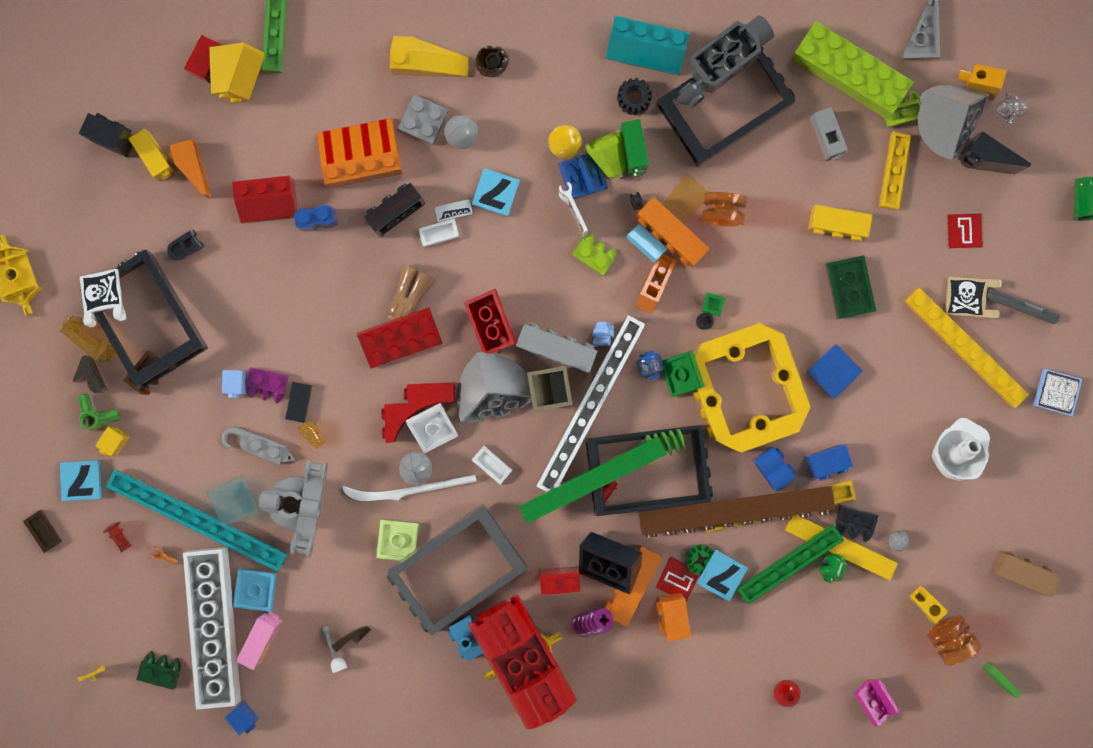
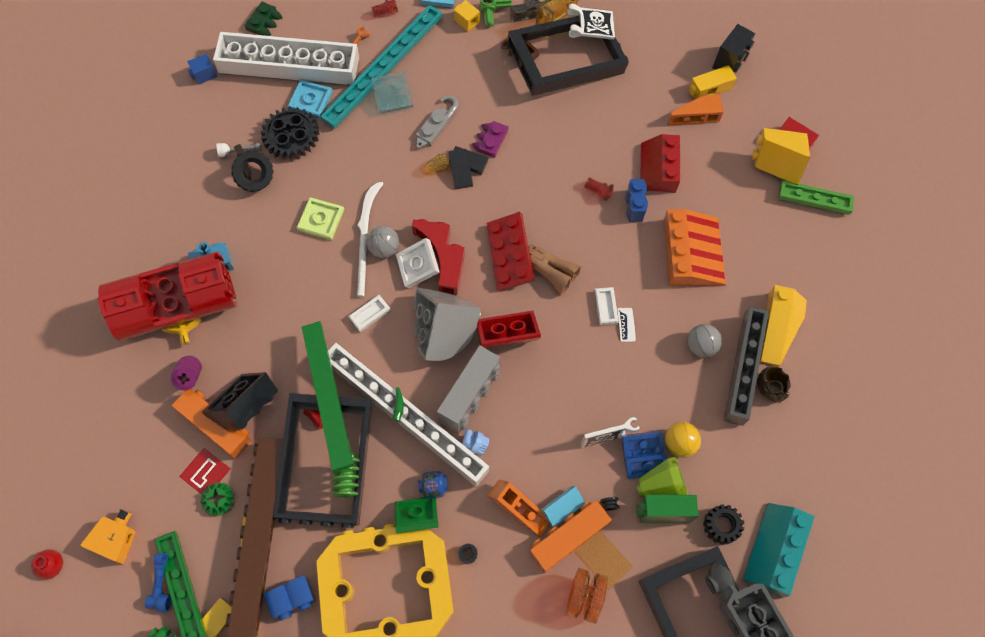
camera: 100 degrees right, 20 degrees down
(178, 250) = (624, 90): black plate -> none
(233, 383) = (497, 111): light blue brick -> none
(259, 640) = (263, 89): bright pink brick -> none
(288, 607) = (290, 133): none -> black gear
(305, 520) = (369, 148): light grey piece -> none
(307, 258) = (601, 189): none -> clear red pin
(312, 407) = (460, 169): none -> black slope
(361, 639) = (262, 161): none -> black tyre
(394, 209) = (634, 267): black slope -> none
(423, 119) = (720, 311): light grey plate -> none
(478, 89) = (746, 366): none -> dark grey brick
(495, 192) = (639, 366): medium azure tile -> none
(498, 536) = (294, 303): dark grey window -> none
(549, 388) = (428, 372): dark tan slope -> none
(559, 580) = (237, 347): red brick -> none
(593, 255) = (558, 450): lime plate -> none
(593, 409) = (399, 406): none -> green helmet
(674, 617) = (165, 454): orange brick -> none
(713, 304) = (484, 566): green plate -> none
(722, 575) = (193, 516): medium azure tile -> none
(755, 643) = (111, 537): none -> light orange torso
(798, 585) = (158, 600): none -> blue brick

